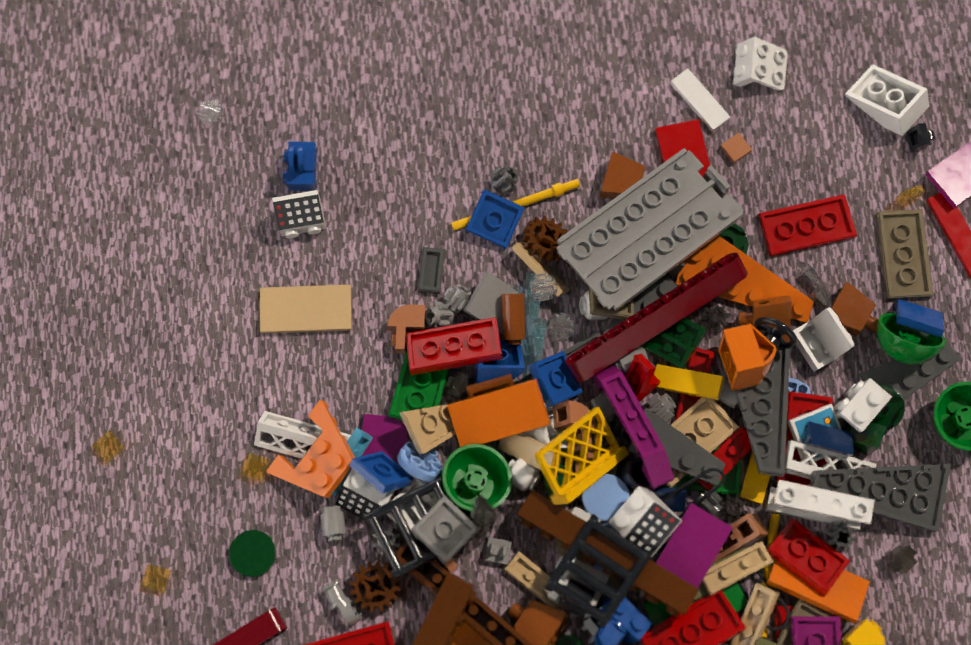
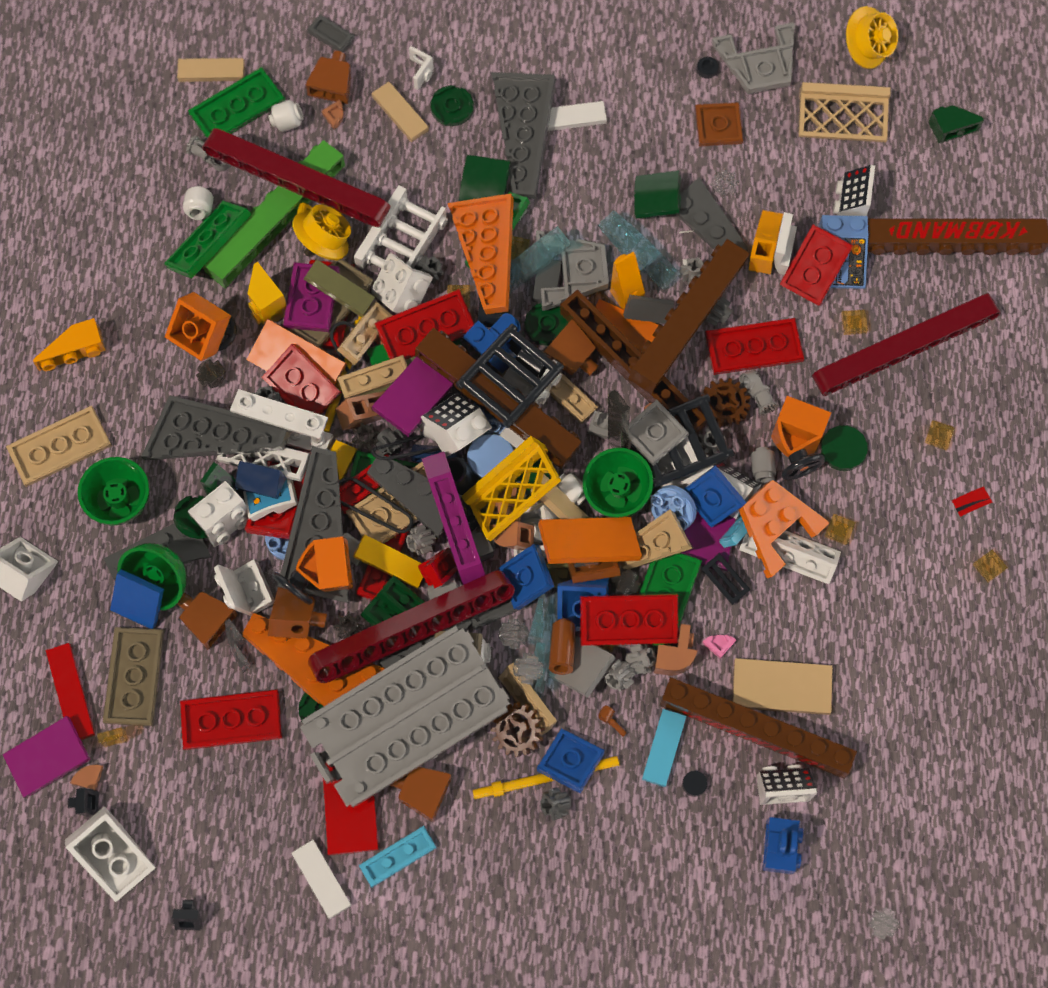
camera: 175 degrees left, 5 degrees down
(124, 512) = (971, 501): none -> red sticker
(299, 555) = (798, 435): none -> orange piece
(327, 264) = (758, 728): none -> reddish brown brick
(366, 342) = (719, 644): none -> bright pink tile
(377, 415) = (711, 563): none -> black tile
(381, 213) = (694, 783): none -> black tile
(411, 242) = (664, 748): none -> medium azure tile
(431, 270) = (644, 714): dark grey tile -> none
(466, 263) = (606, 715): none -> dark orange hand
(637, 125) = (397, 856): none -> medium azure tile
(705, 442) = (381, 497): none -> black piece
(736, 148) = (291, 816): nougat tile -> none
(760, 63) = (245, 912): white bracket -> none
(809, 56) = (187, 917): none -> black tile
(922, 161) = (88, 777): none -> nougat tile
(924, 599) = (200, 326): none -> orange piece

